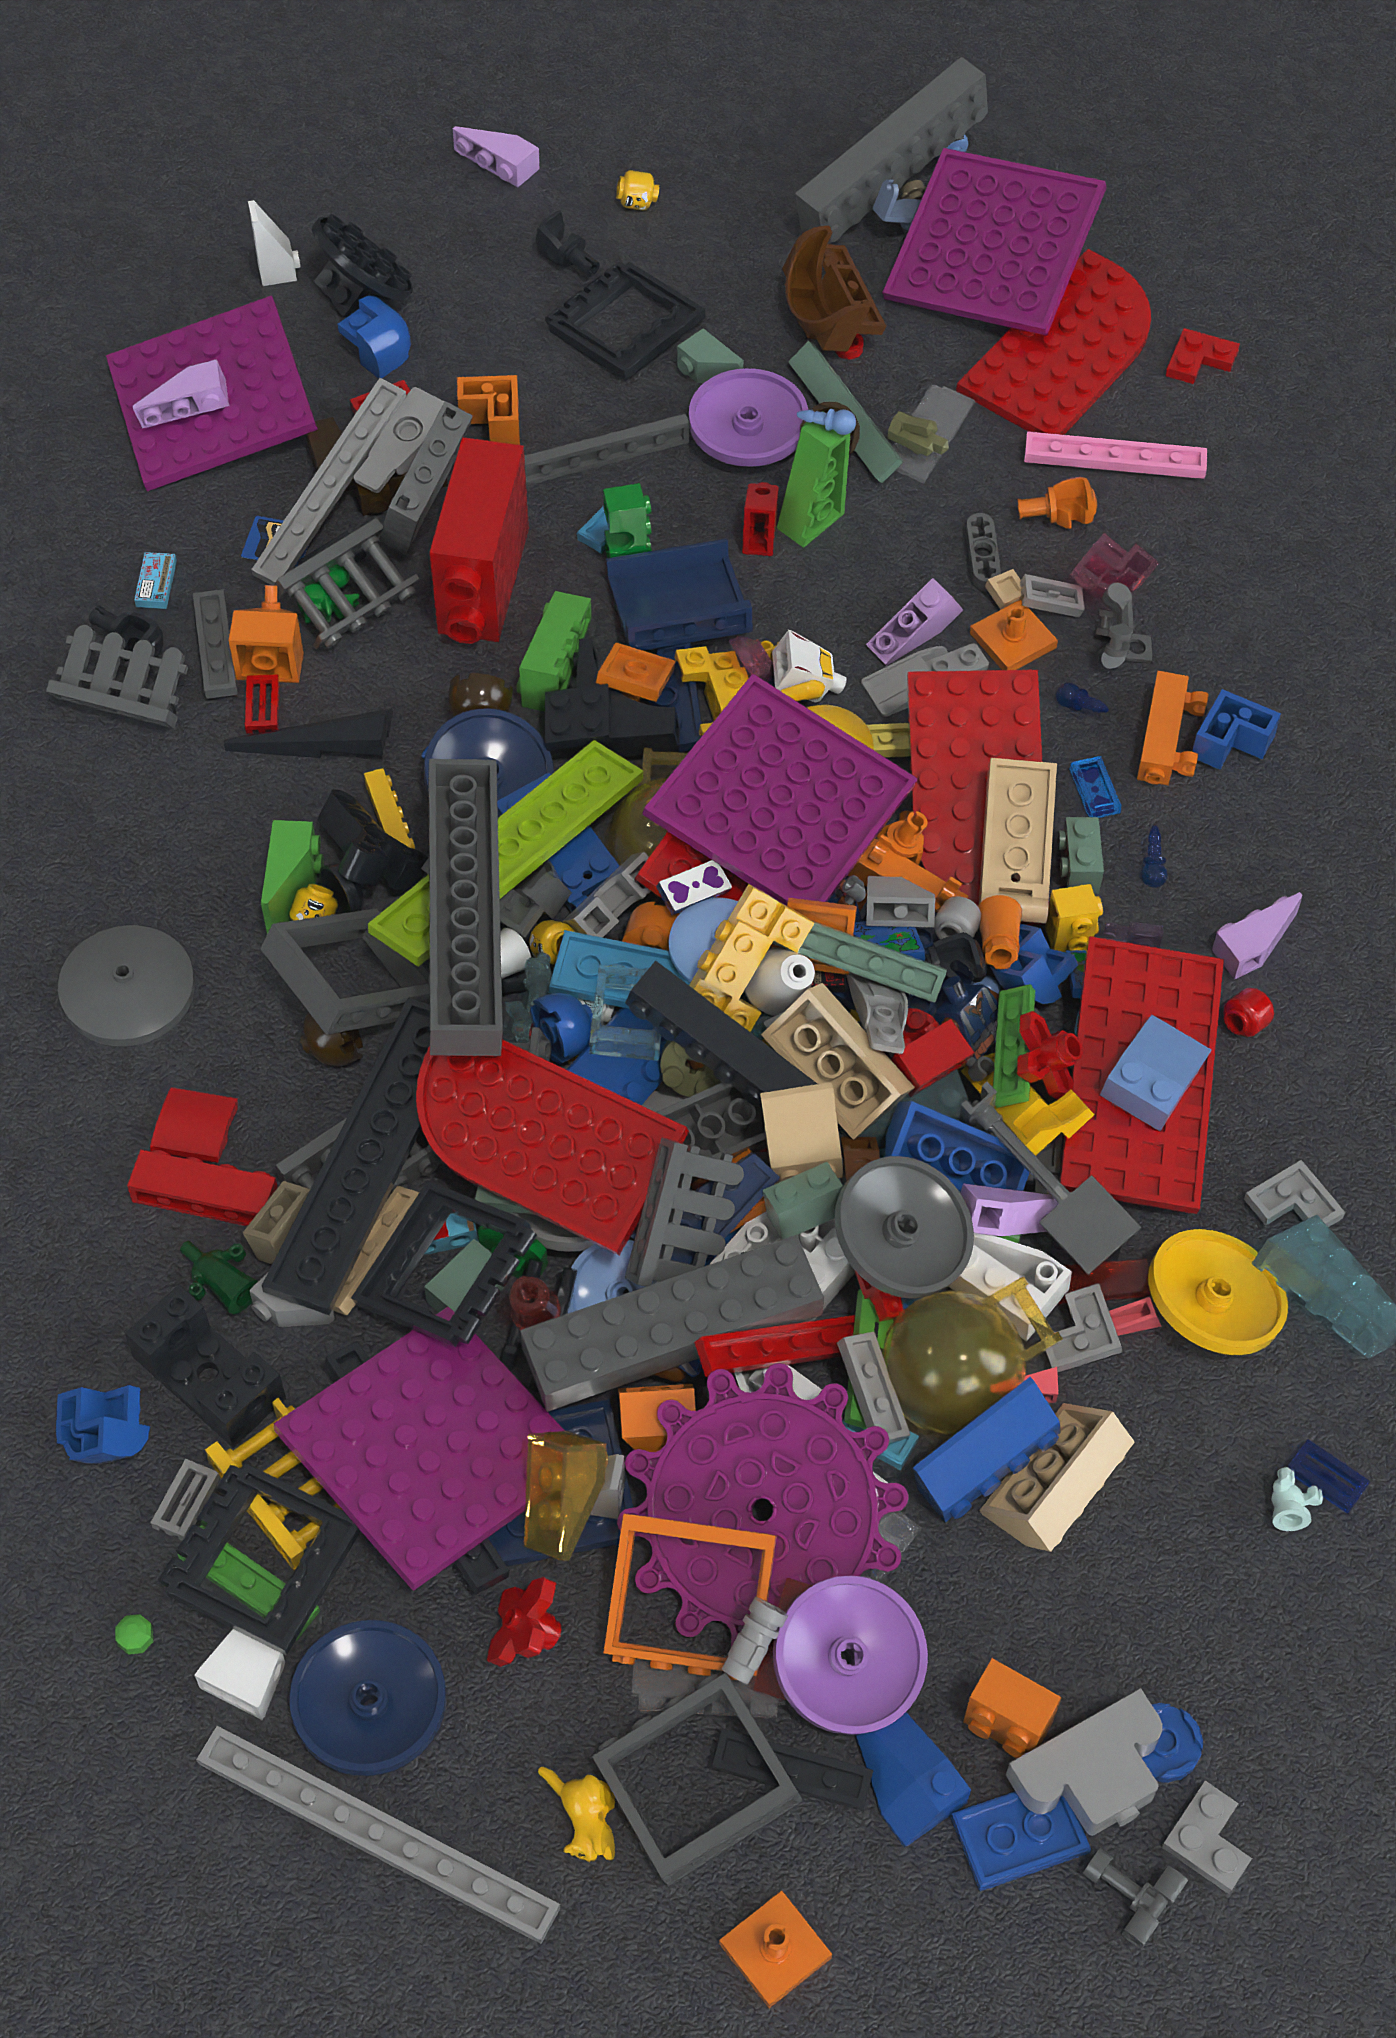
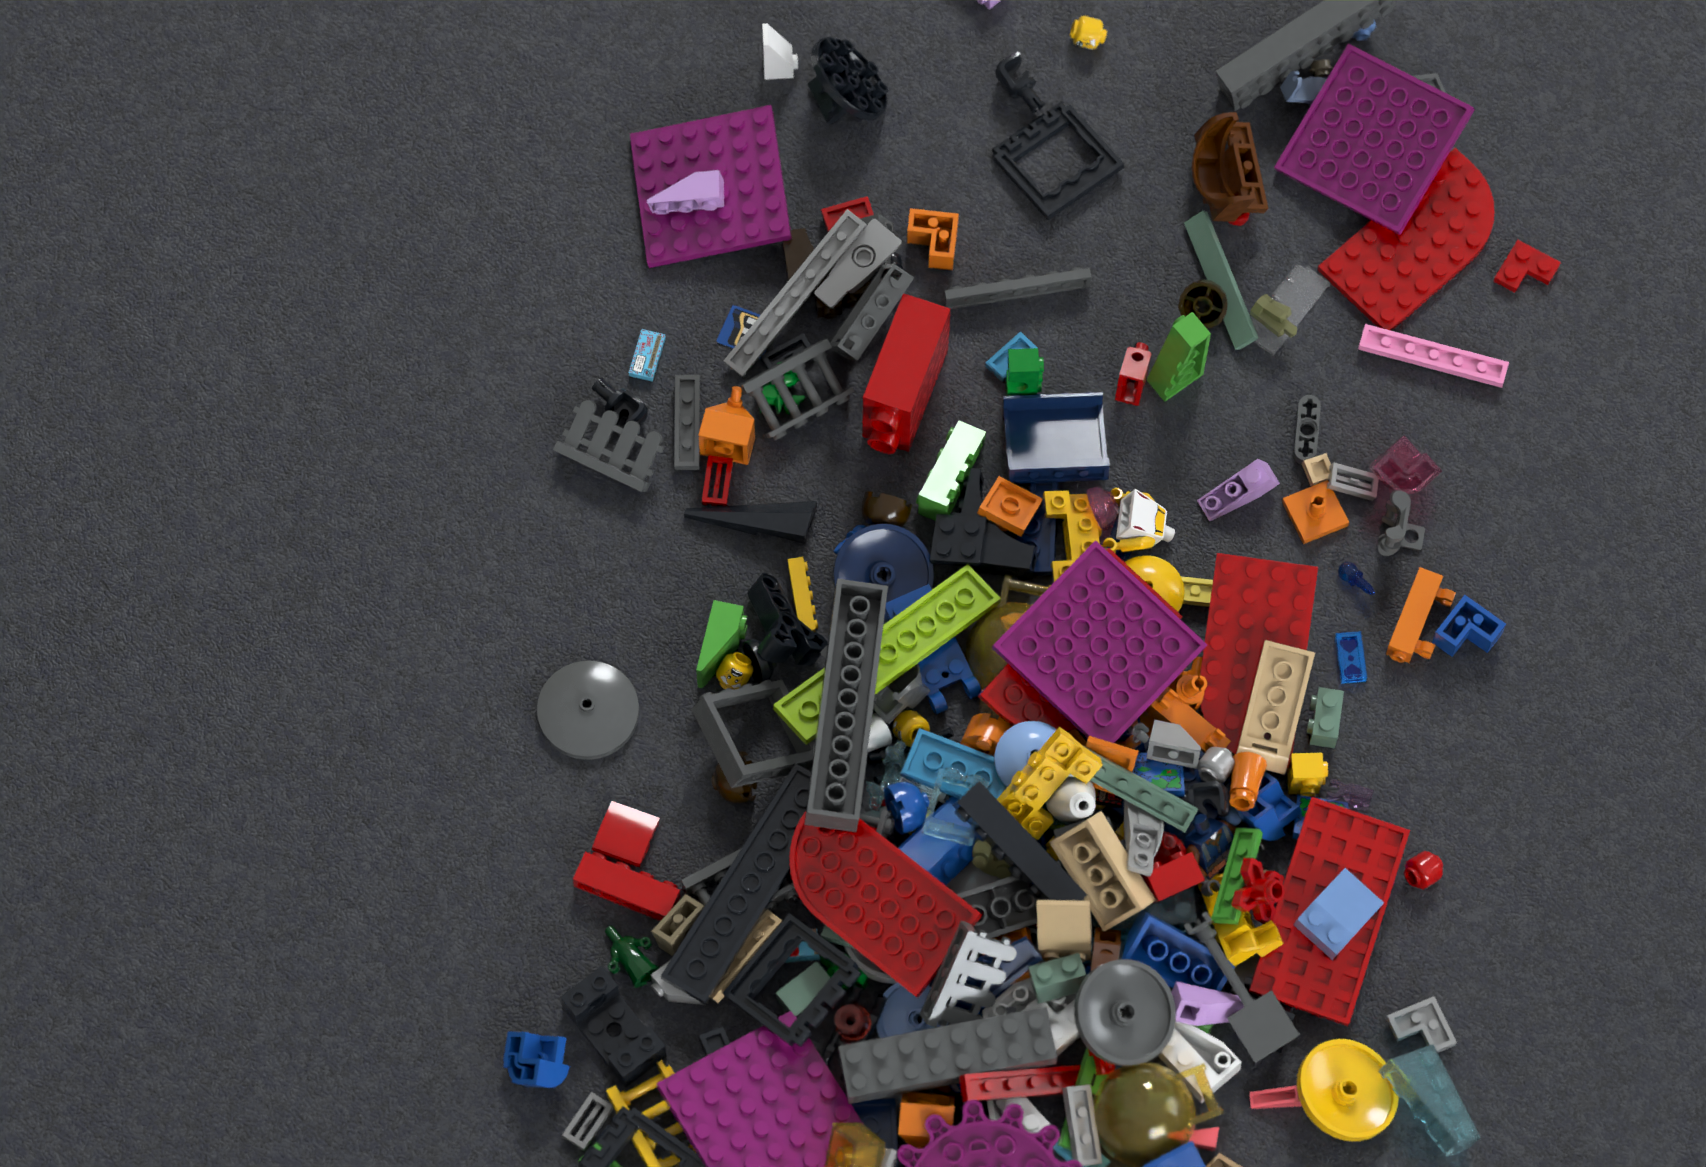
camera: 10 degrees right, 10 degrees up
(378, 334) = (852, 150): blue brick -> none
(604, 905) = (947, 711): light grey arch -> none
(693, 886) = (1020, 711): tile -> none
(705, 357) = (1118, 213): sand green slope -> none
(747, 417) = (1142, 258): medium lavender dish -> none
(842, 421) = (1204, 328): medium blue bar -> none
(889, 685) = (1236, 536): light grey piece -> none
(1062, 503) = (1380, 395): orange piece -> none
(1092, 1335) = (1251, 1105): light grey plate -> none
(1115, 1279) = (1273, 1066): clear red tile -> none
(1154, 872) = (1380, 738): clear blue bar -> none
(1251, 940) = (1439, 811): lavender slope -> none

